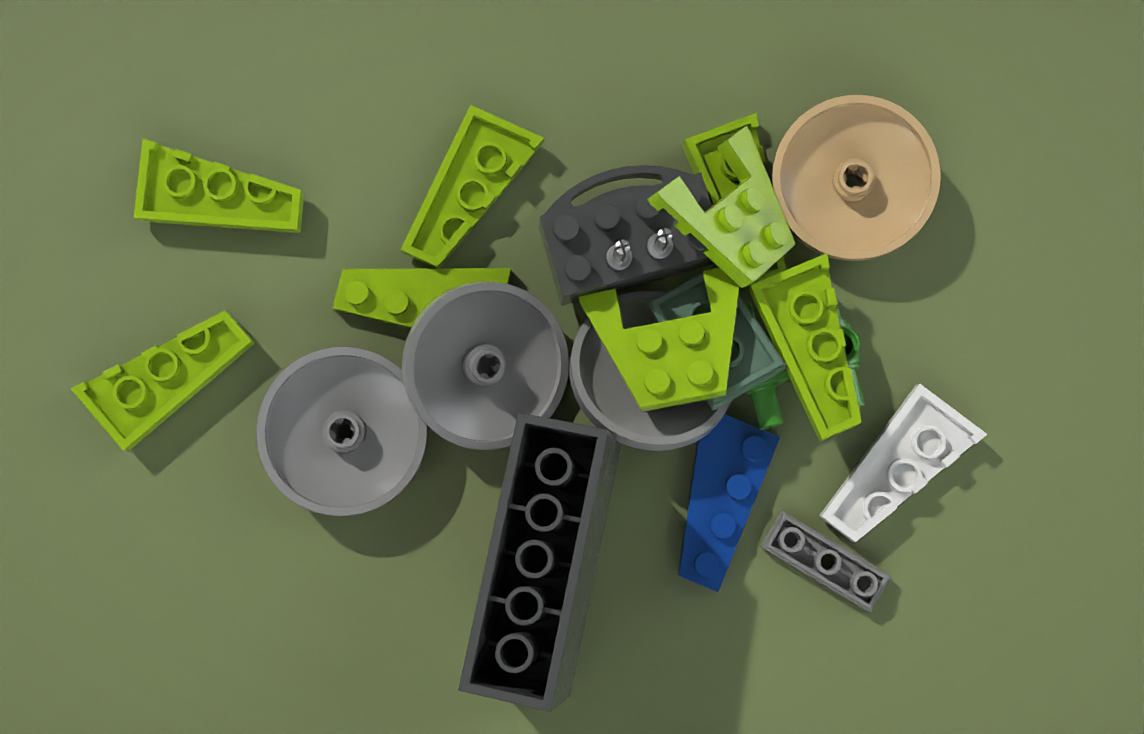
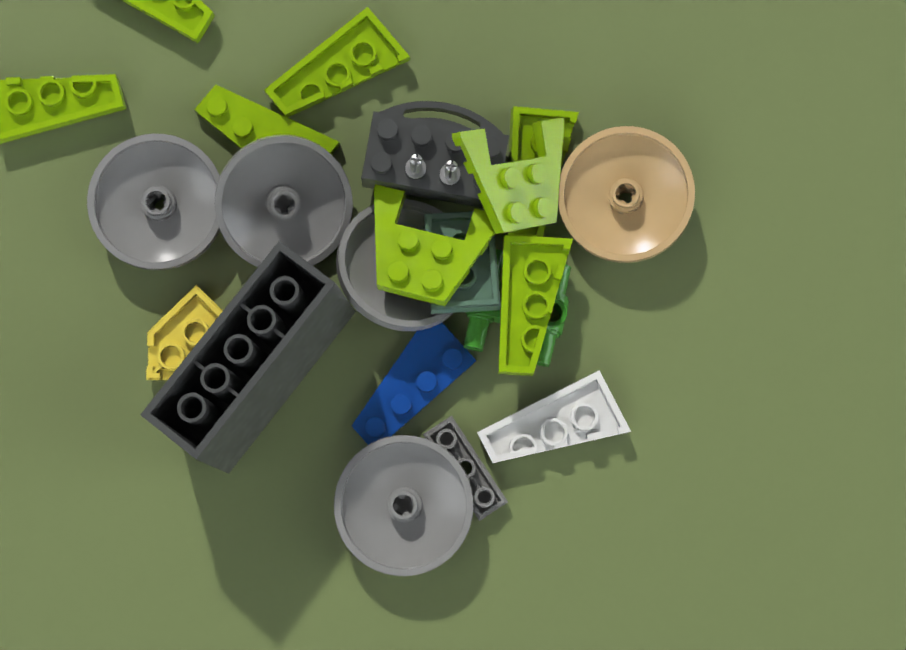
camera: 30 degrees right, 0 degrees up
(446, 566) = (179, 332): none -> light yellow tile
(784, 637) = (403, 505): none -> light grey dish

